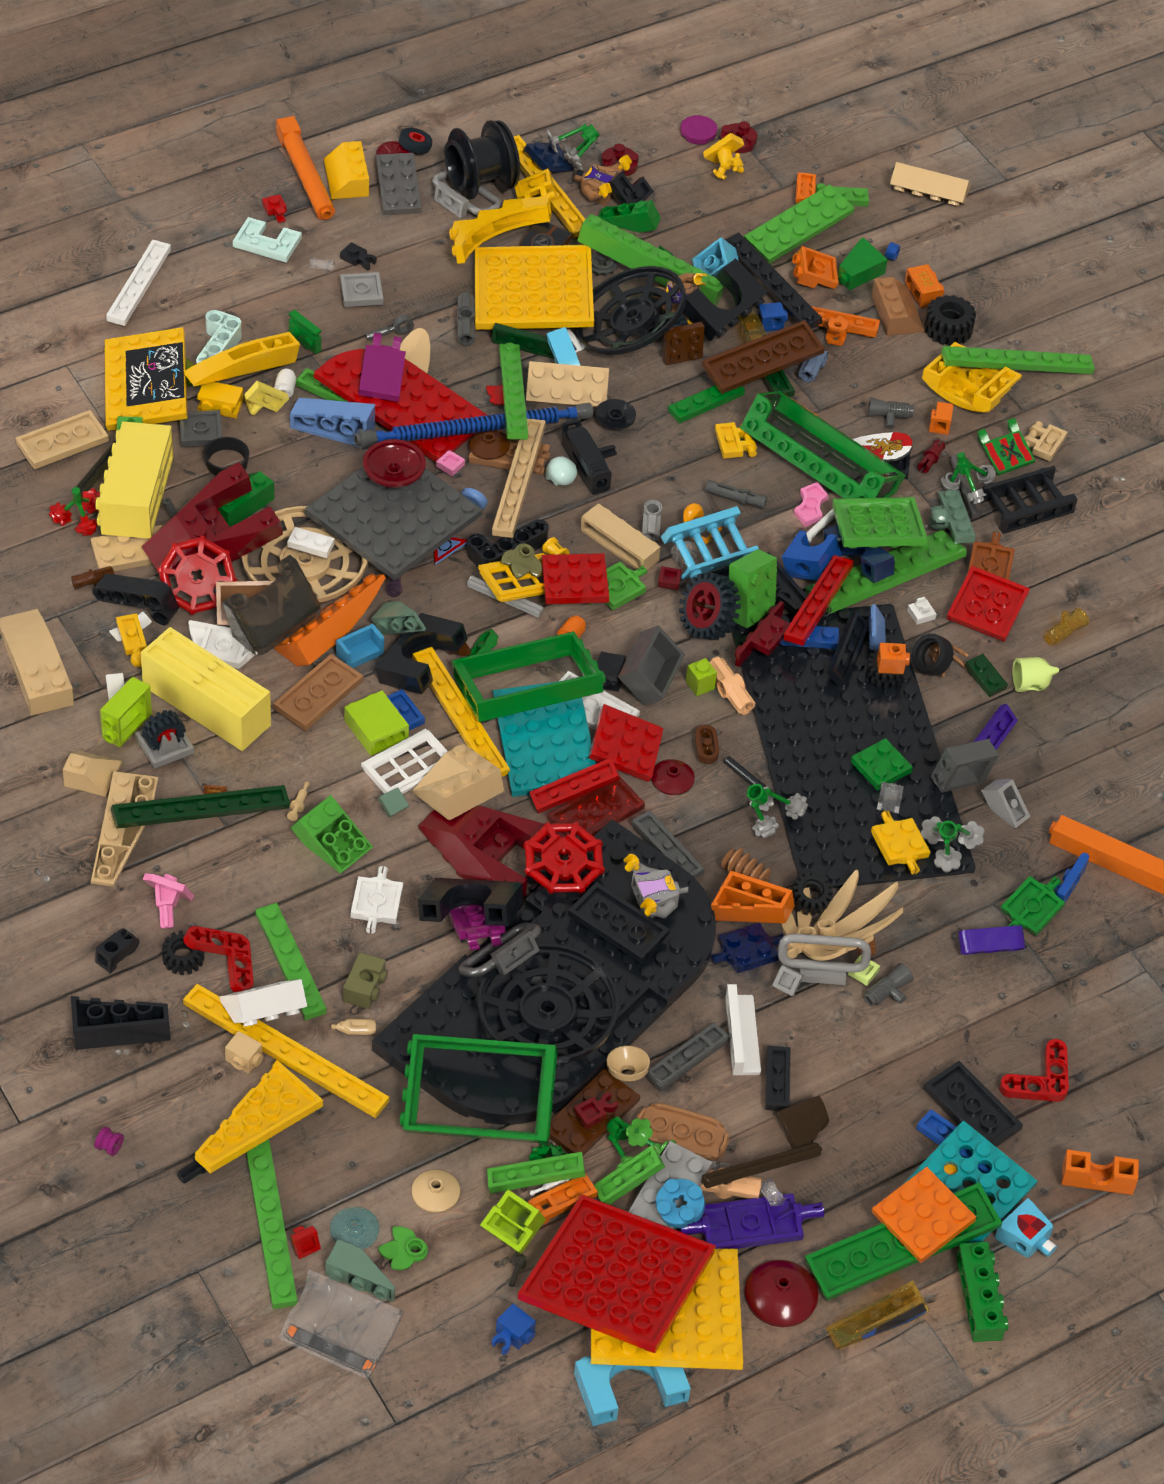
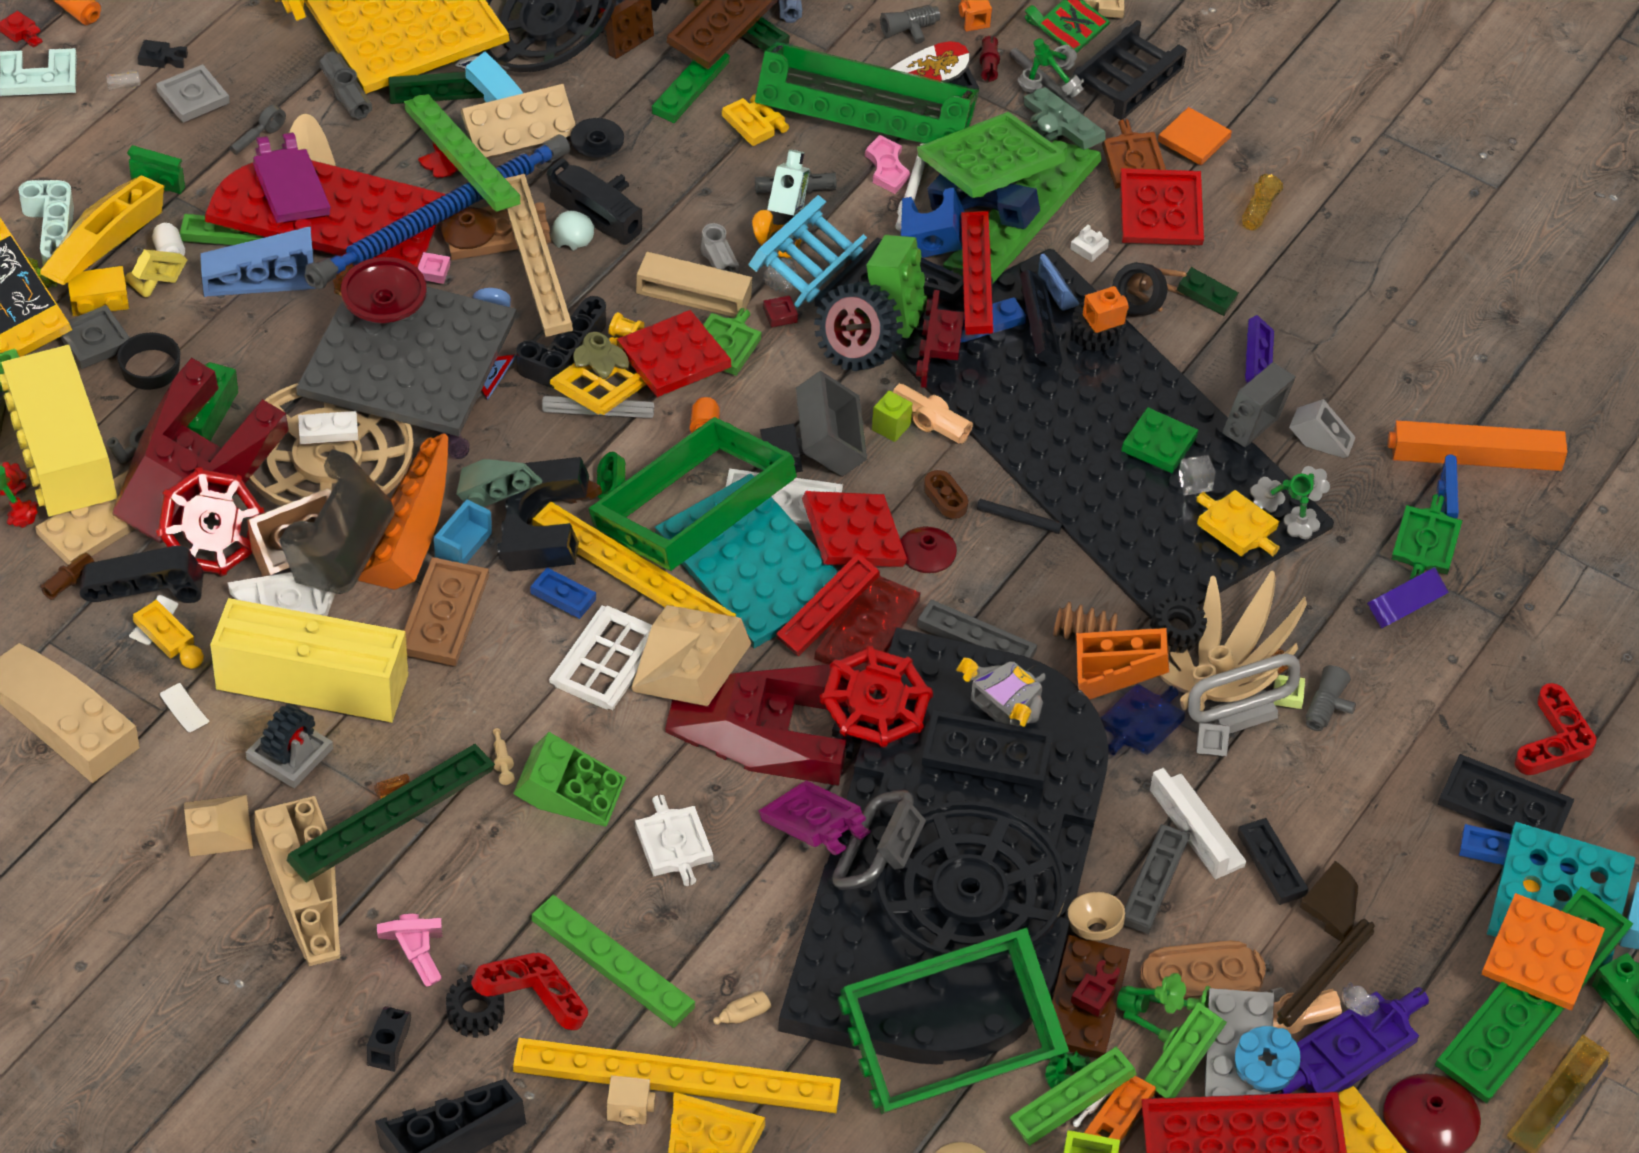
camera: 25 degrees left, 0 degrees up
(126, 711) = (222, 729): lime window -> none
(265, 1002) = (620, 1024): white slope -> none
(364, 980) = (721, 947): olive brick -> none
(376, 722) = (539, 621): lime brick -> none
(393, 802) = (619, 711): sand green tile -> none
(499, 899) = (764, 794): black arch -> none
(723, 492) = (785, 195): none -> light aqua torso
(762, 798) = (1057, 530): light grey plant -> none
(1032, 674) = (1260, 270): yellowish green piece -> none
(1047, 563) = (1194, 136): none -> orange tile

